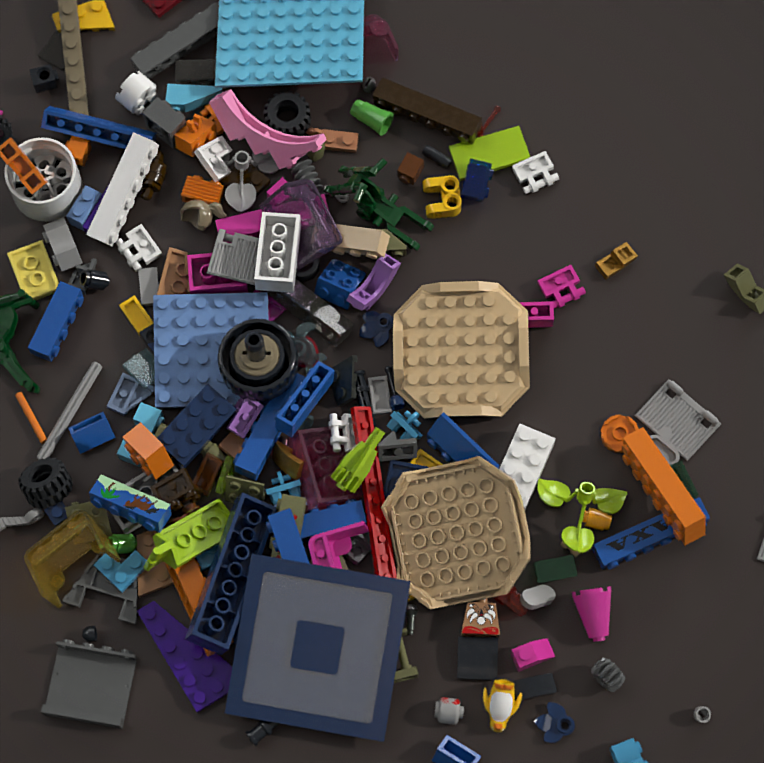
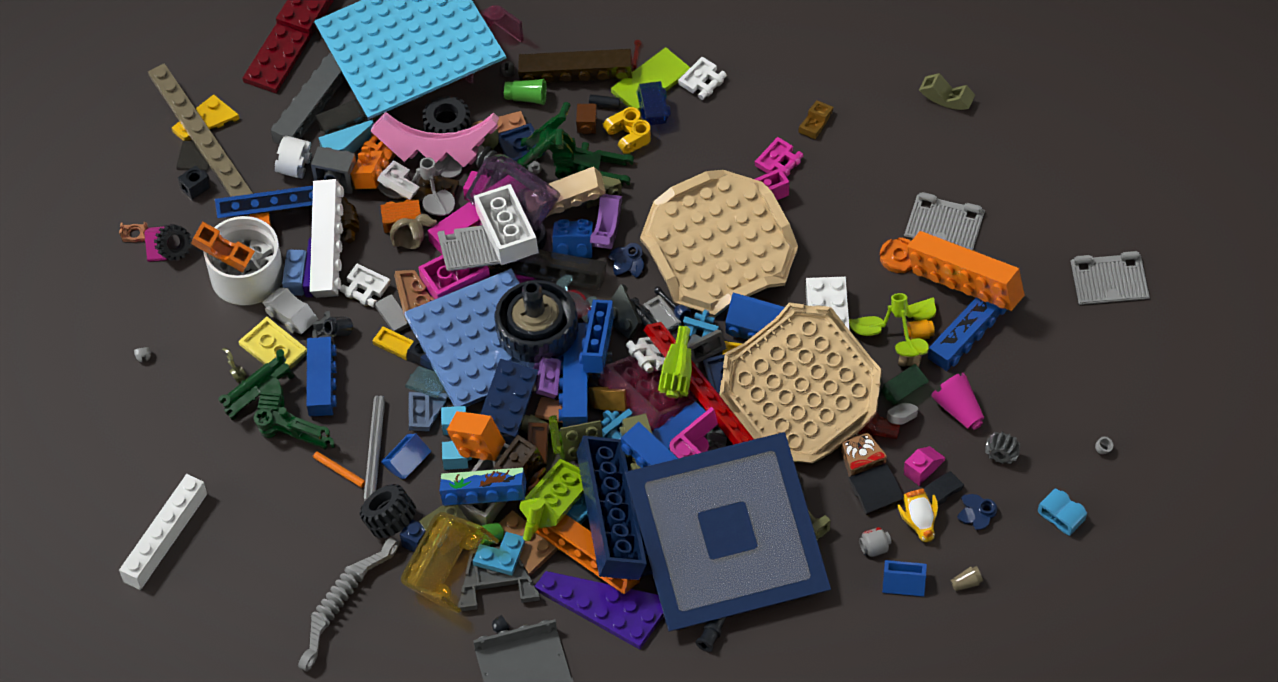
camera: 25 degrees left, 15 degrees down
(333, 160) = (511, 141): none -> dark blue plate

